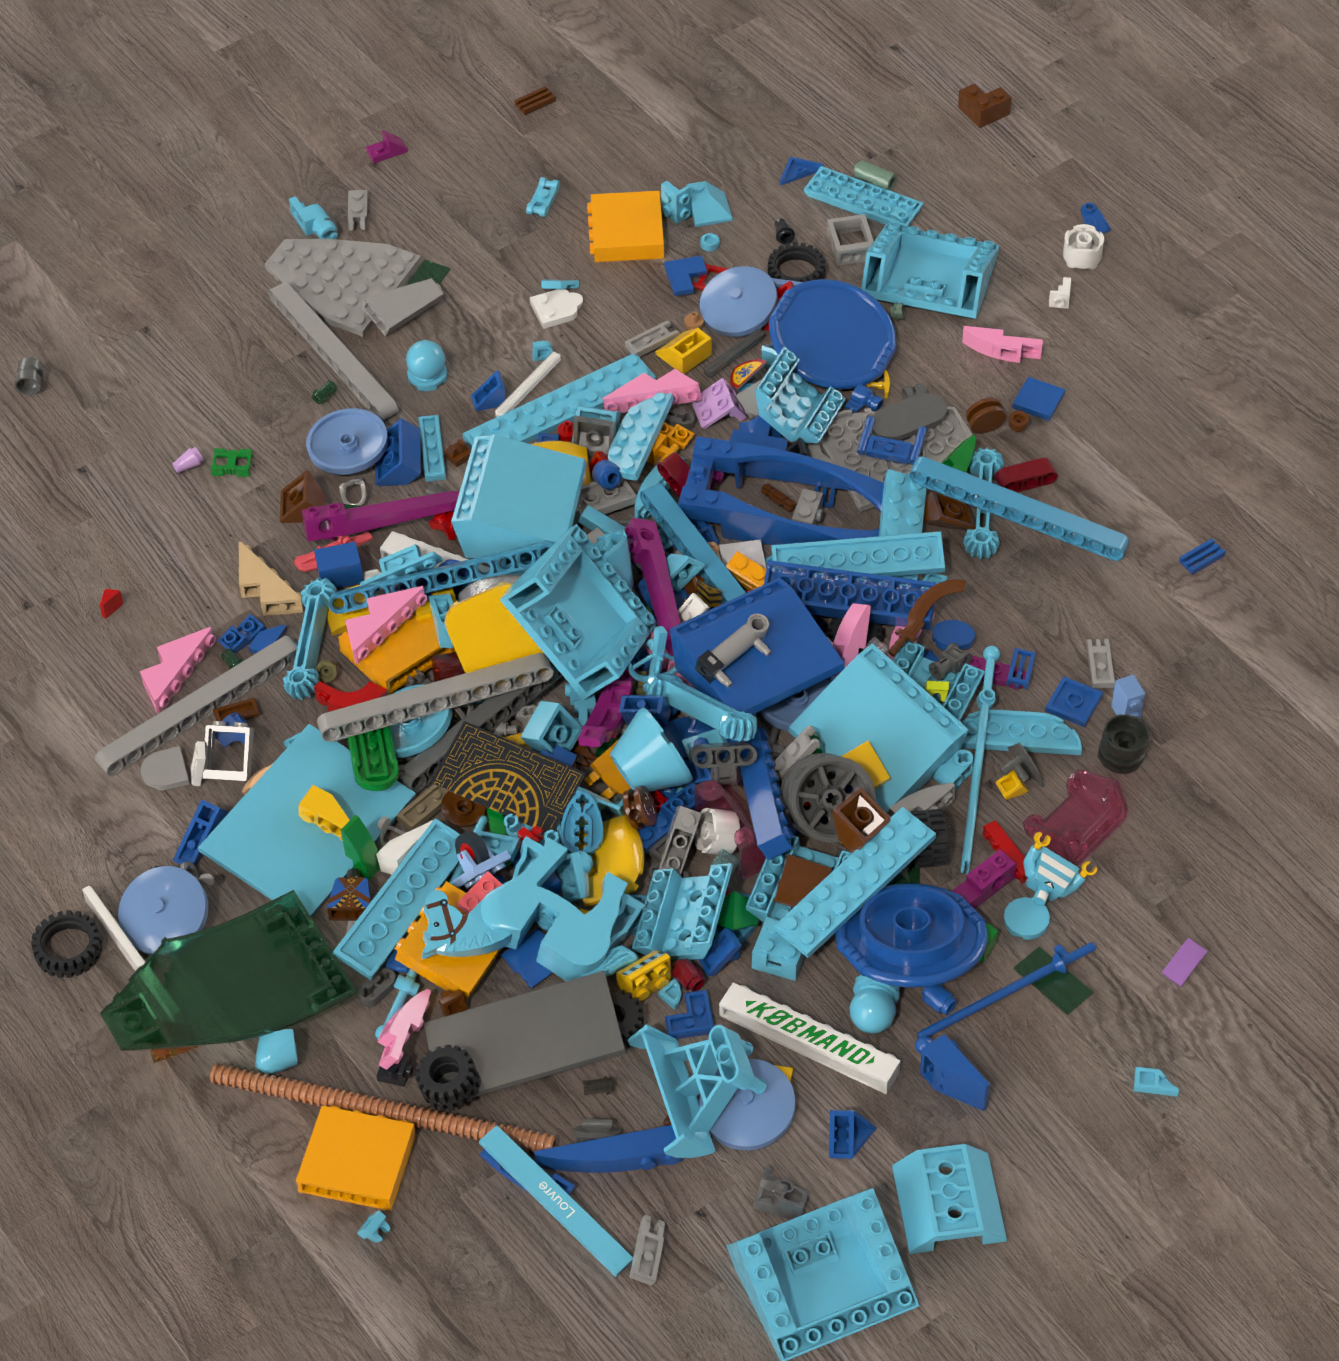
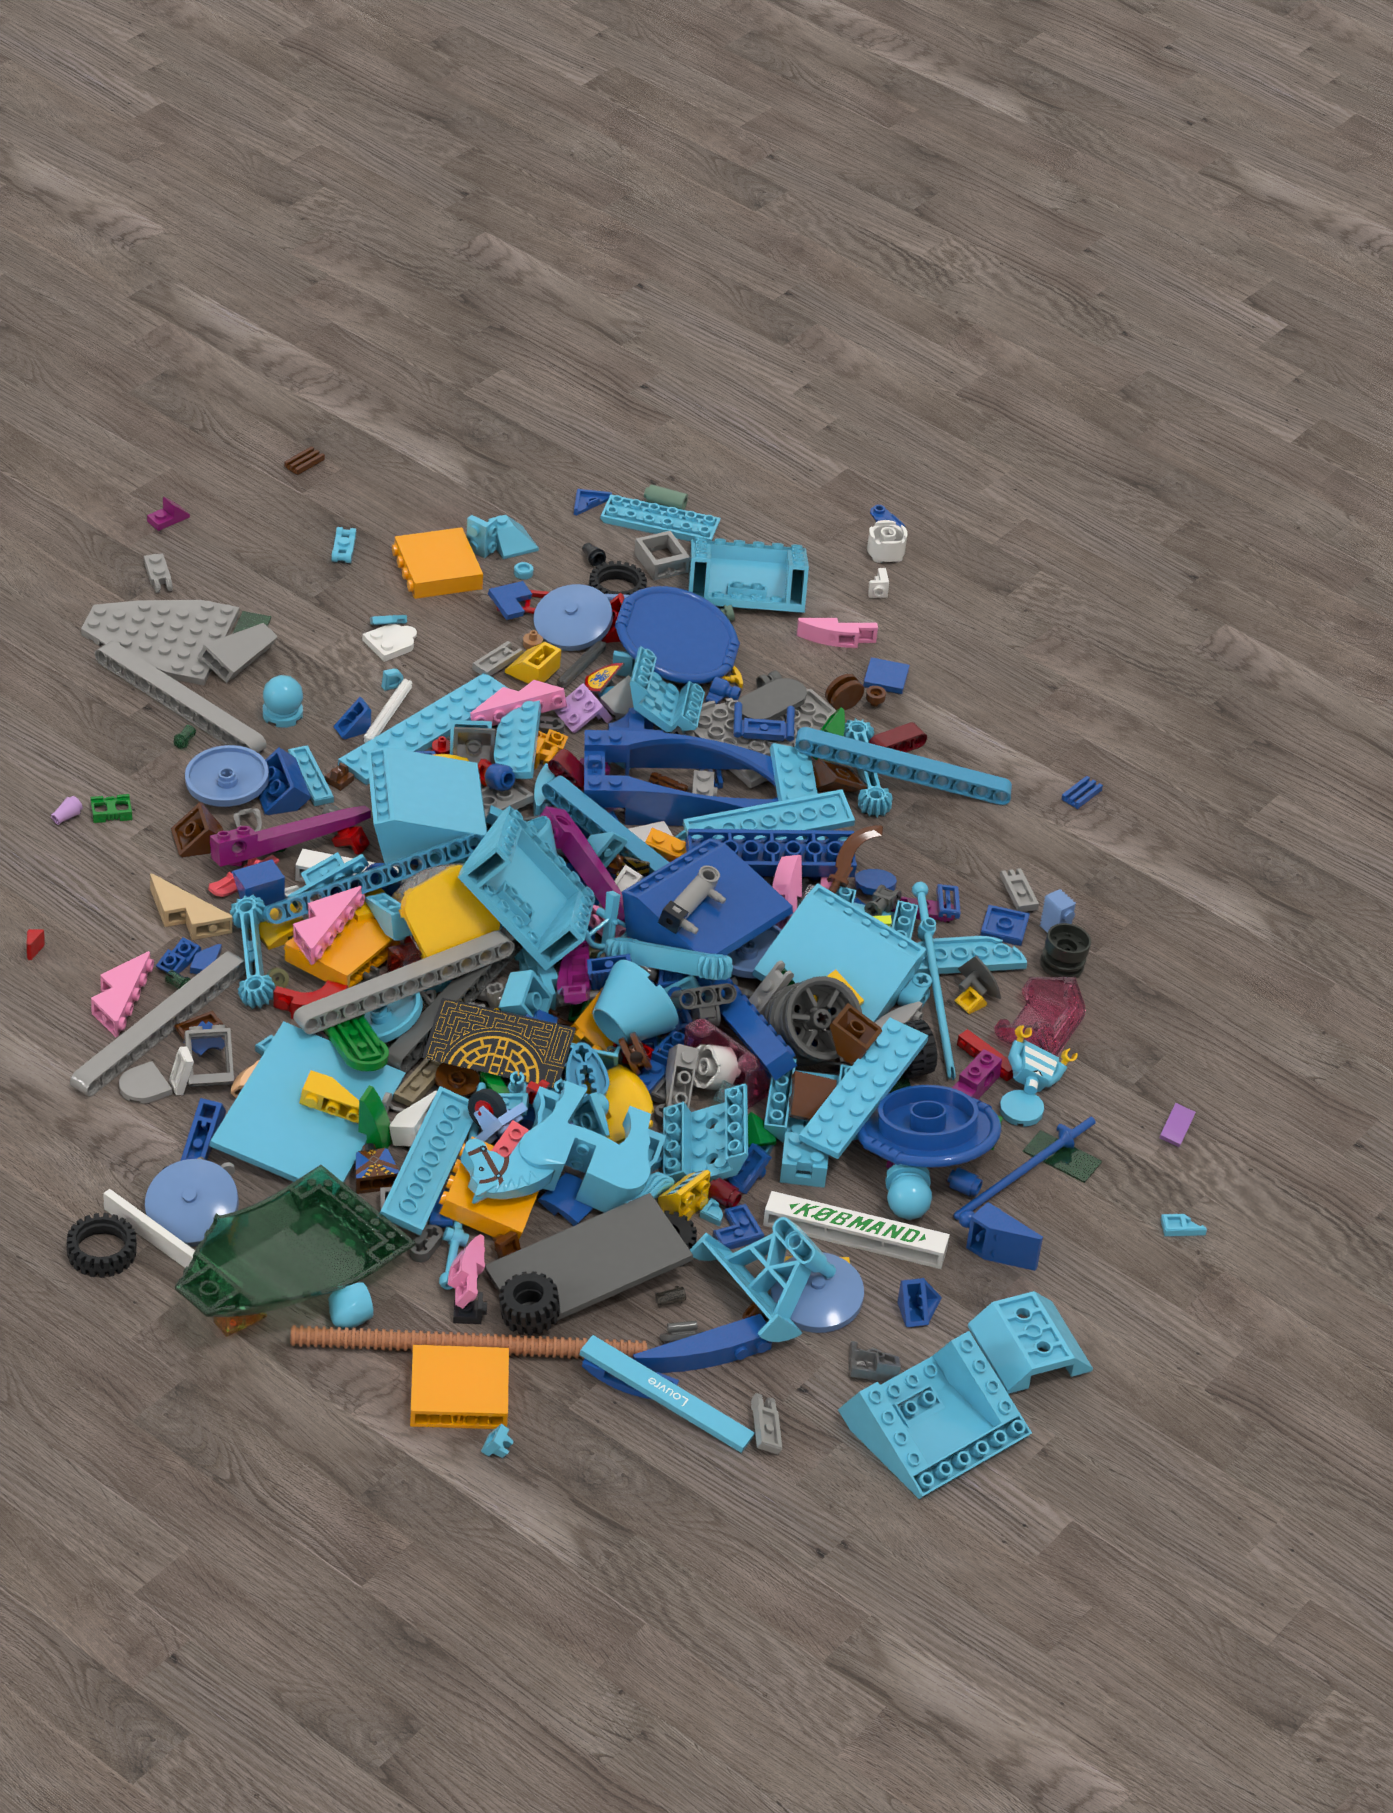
camera: 20 degrees left, 10 degrees down
(314, 219) = (116, 584): medium azure plate -> none
(982, 107) = (750, 430): reddish brown brick -> none

